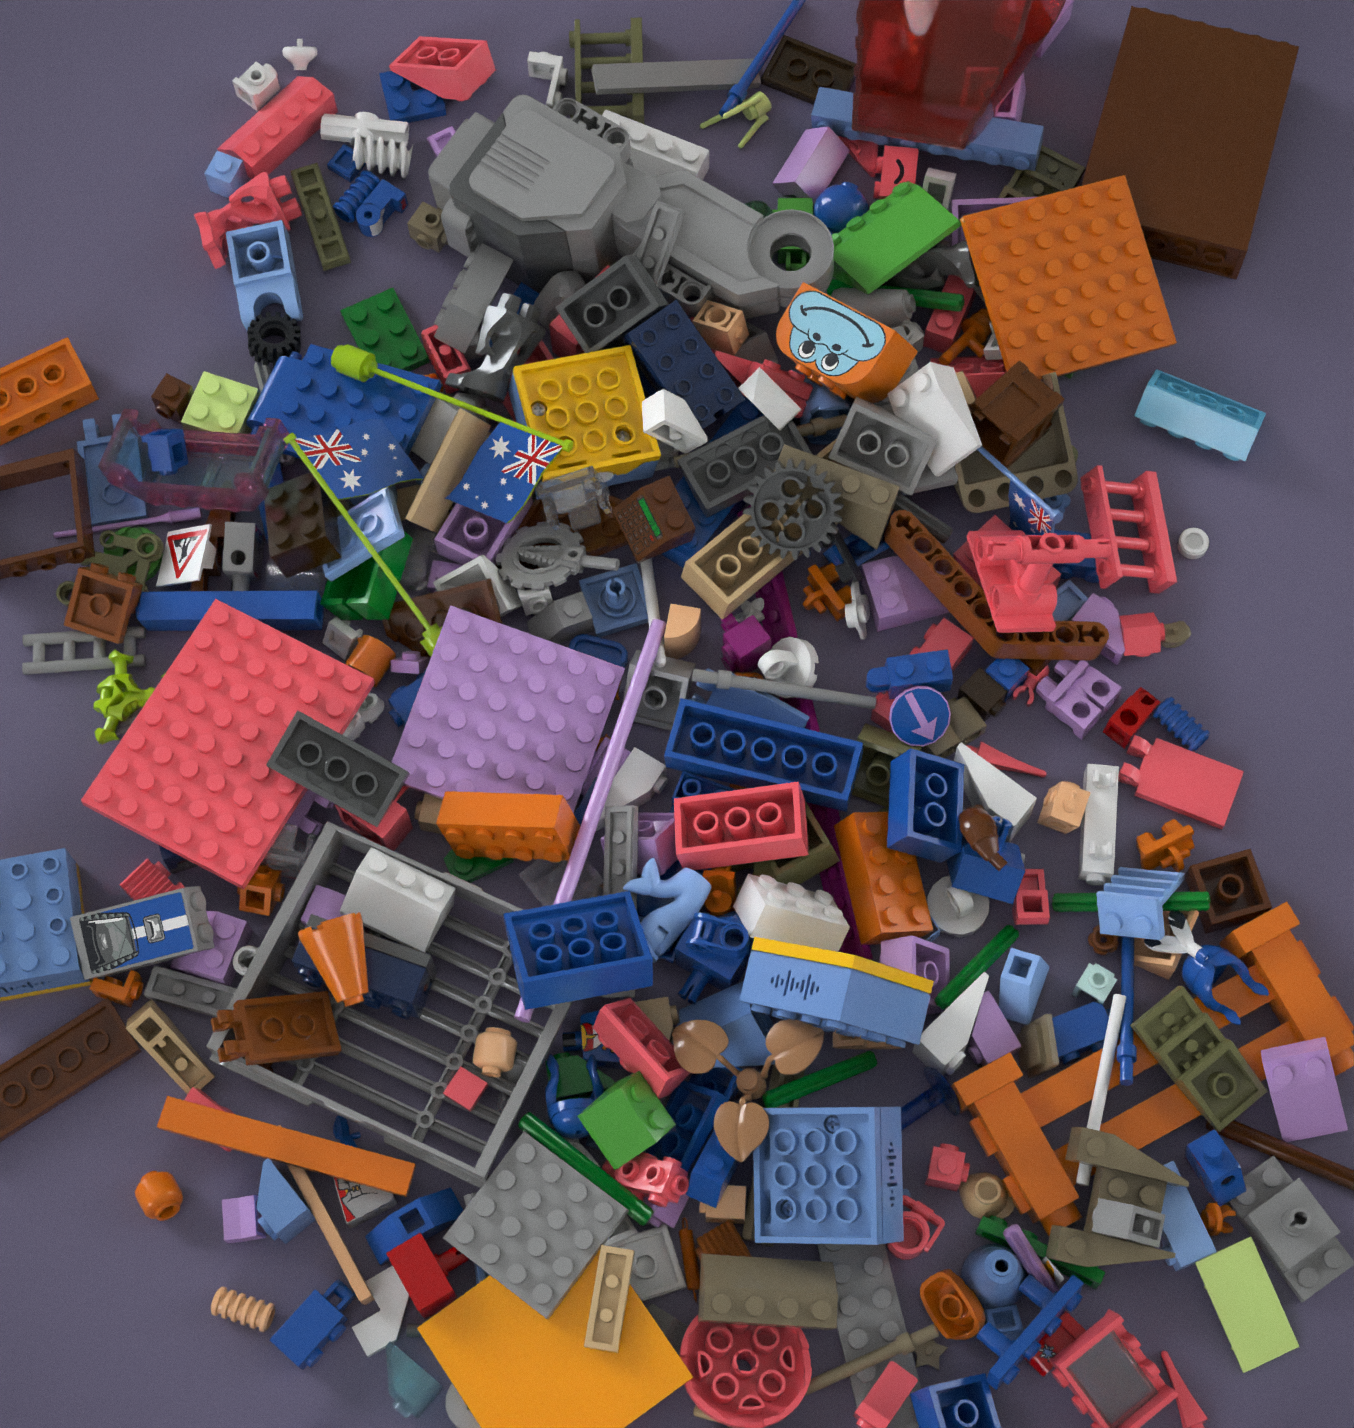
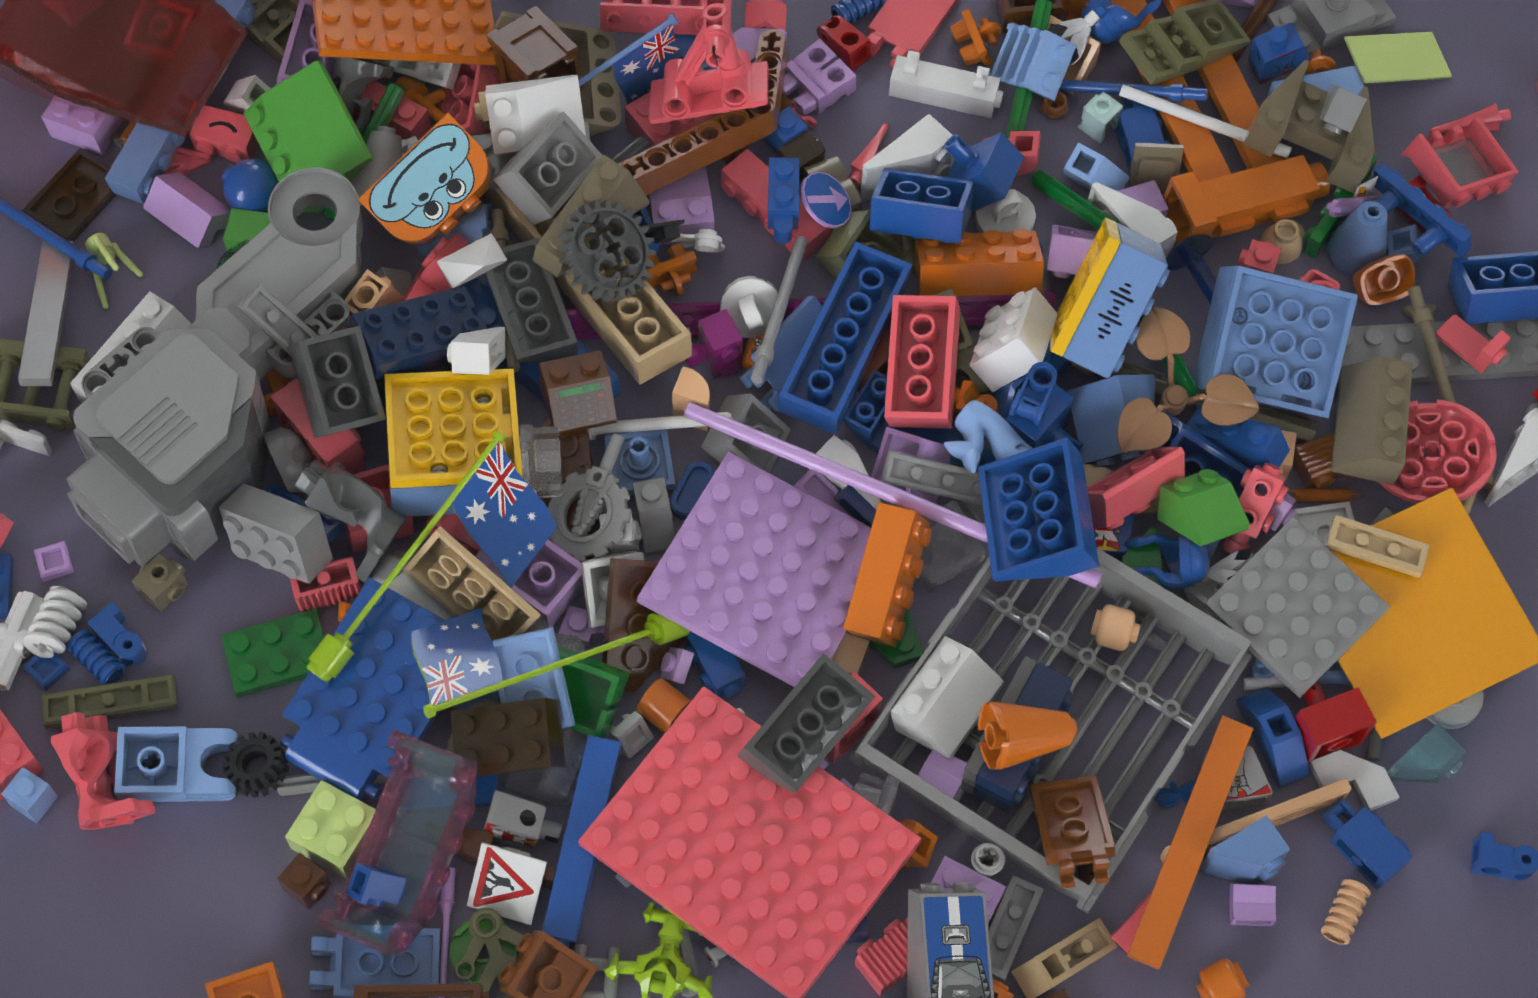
camera: 85 degrees left, 5 degrees down
(465, 1089) = (1147, 662): coral tile -> none
(564, 1150) = (1241, 556): green axle -> none
(981, 834) = (961, 156): reddish brown piece -> none
(1063, 807) = (928, 99): light nougat head -> none

